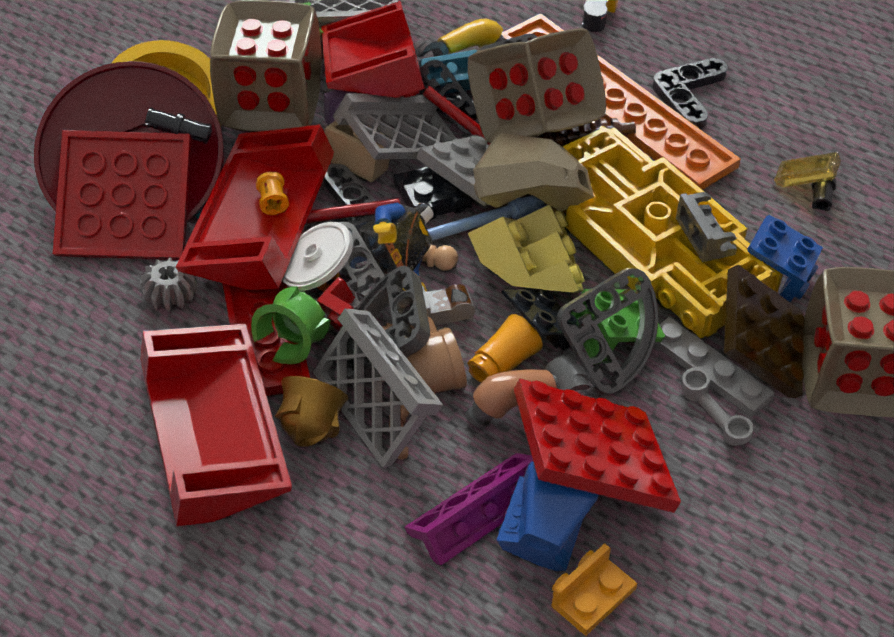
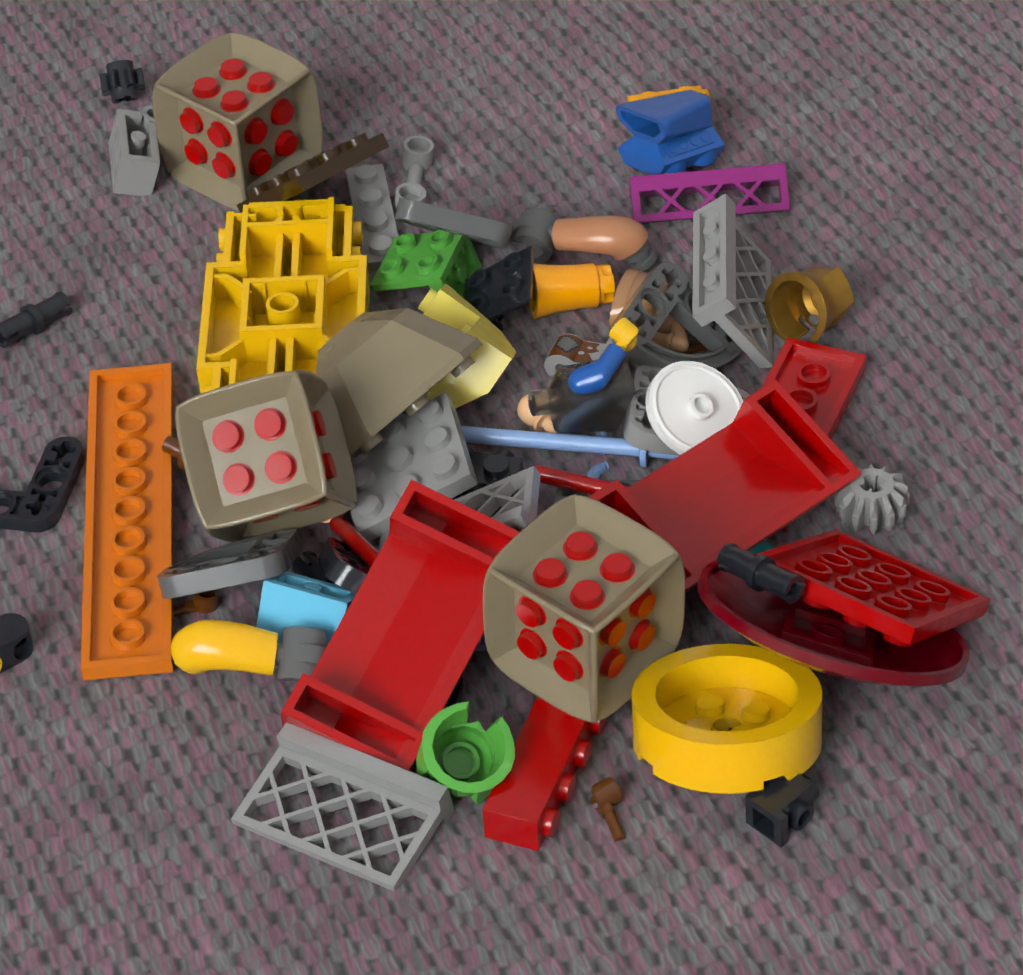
camera: 140 degrees left, 5 degrees down
(212, 422) = (916, 336): red slope -> none
(272, 193) = (690, 478): light orange bush -> none
(295, 319) = (775, 353): bright green helmet -> none
(335, 300) = (715, 346): red bracket -> none
(594, 446) = (579, 148): red plate -> none
(703, 229) = (269, 249): dark grey hinge -> none
(787, 253) = (197, 229): blue bracket -> none
(808, 169) = (38, 324): clear yellow tile -> none

